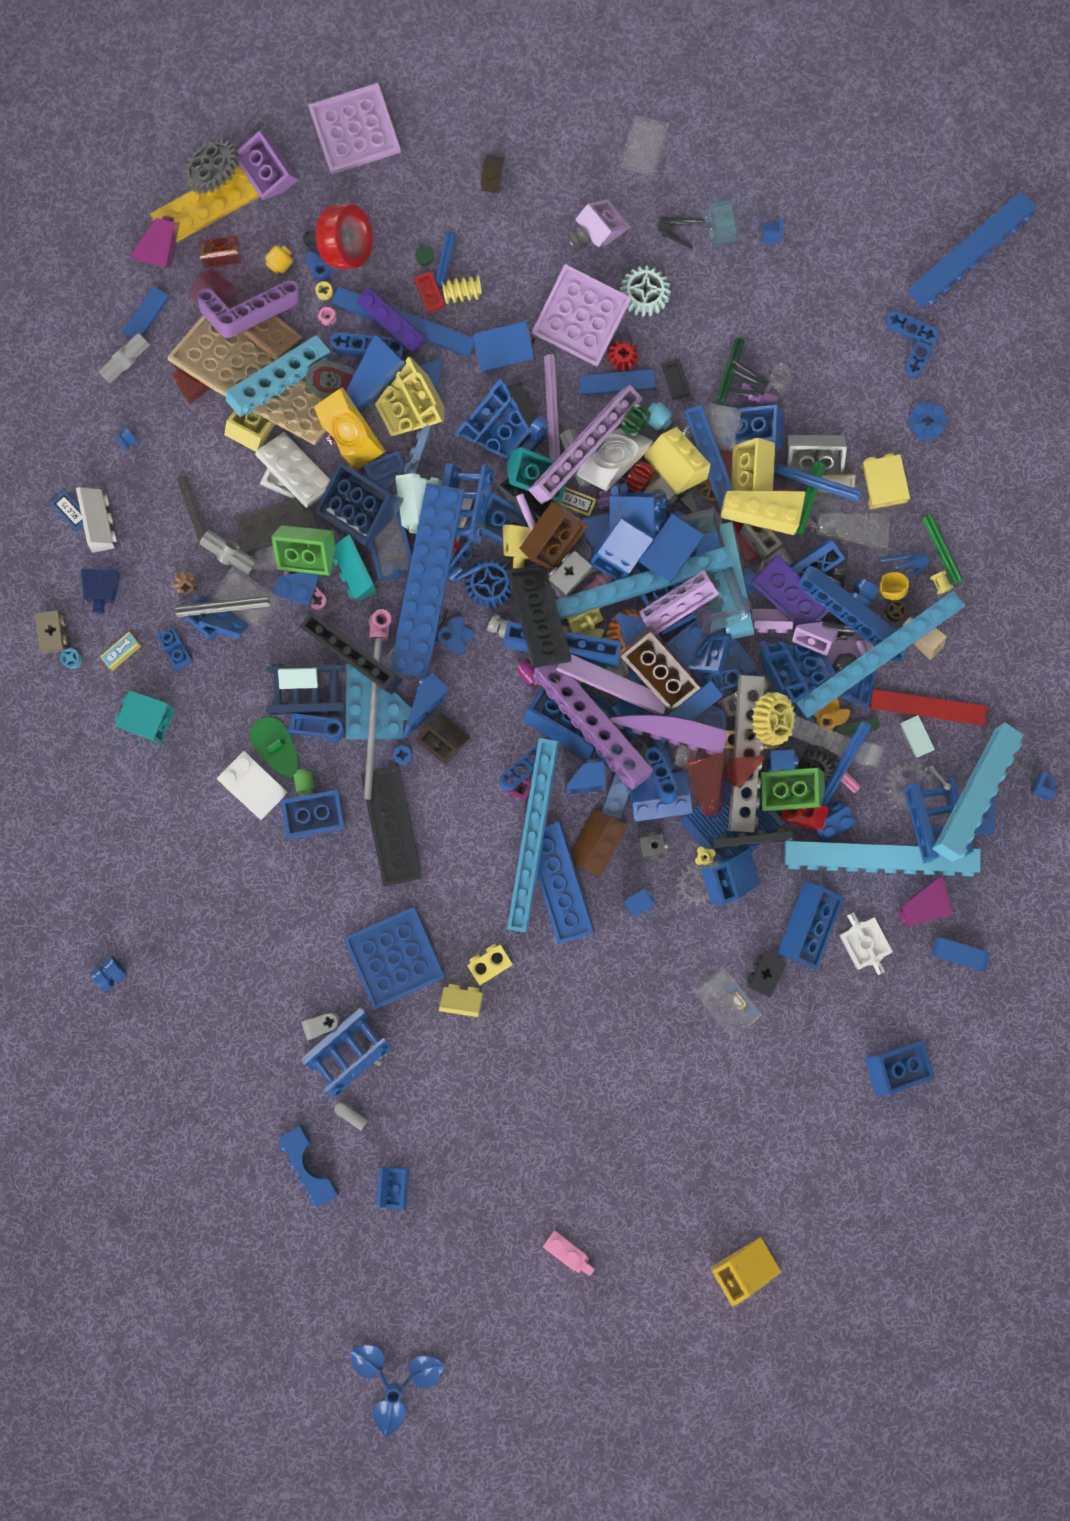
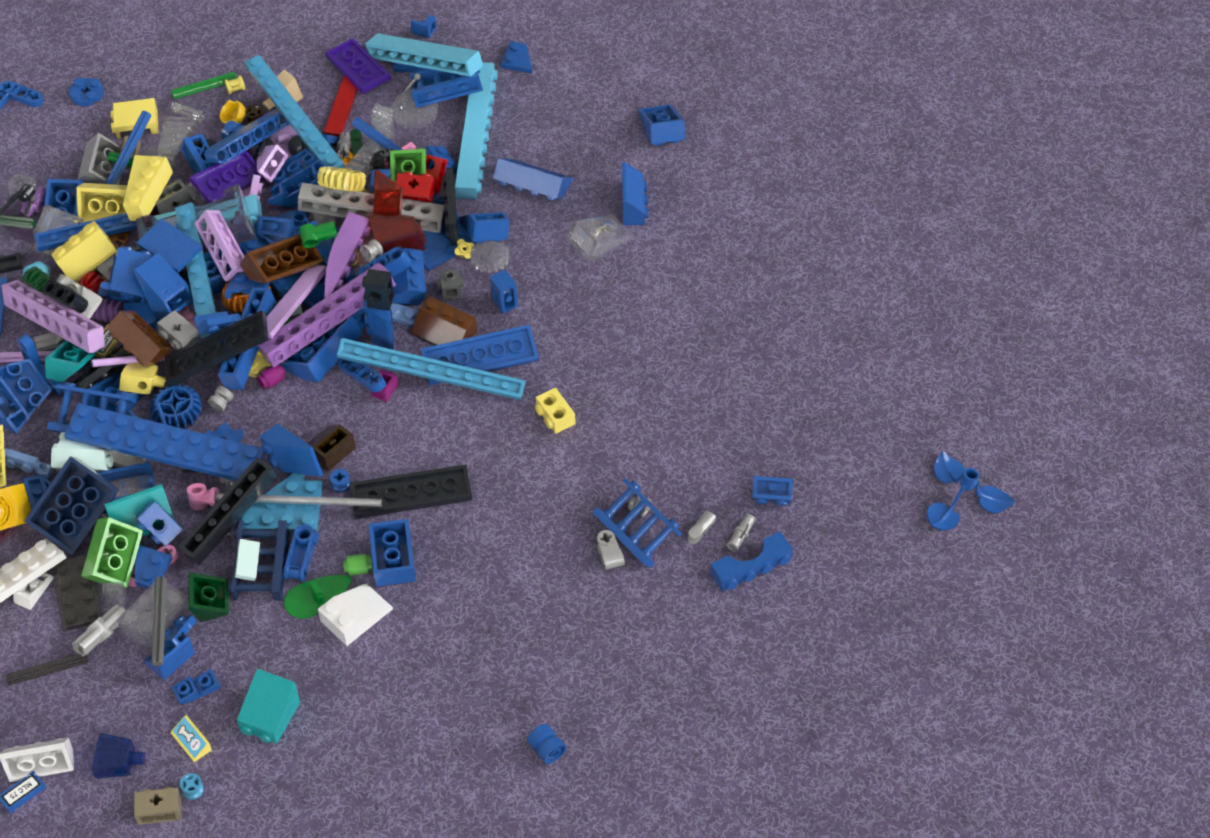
camera: 90 degrees left, 30 degrees down
(185, 582) = (125, 672): medium nougat gear -> none
(264, 646) = (208, 596): none -> dark green slope
(340, 589) = (152, 512): none -> brick
(344, 1155) = (741, 532): none -> light grey pin
(394, 958) = (544, 490): blue plate -> none
(461, 1001) = (590, 430): light yellow slope -> none
(568, 1253) = (831, 357): bright pink hinge -> none
(572, 610) = (214, 322): none -> blue bracket
(592, 775) = (378, 289): none -> black brick
(604, 452) = (65, 296): none -> black beam
(678, 760) = (371, 250): none -> light grey wheel
(691, 697) = (312, 235): none -> green piece
(745, 1271) = (844, 229): yellow slope -> none
(766, 789) = (423, 192): none -> red brick
(775, 968) = (575, 206): black brick -> none
(781, 1039) = (633, 196): none -> blue slope
(849, 713) = (344, 145): none -> light grey pin
(865, 943) = (551, 142): white plate -> none
(898, 536) = (179, 109): none -> clear pin
(917, 562) = (213, 100): blue plant -> none
(917, 736) = (365, 107): light aqua tile -> none
(927, 904) = (518, 100): magenta slope -> none
(960, 954) = (564, 81): blue beam -> none
(975, 716) = (357, 66): none -> dark purple tile
(1000, 897) = (517, 58): none -> blue wing

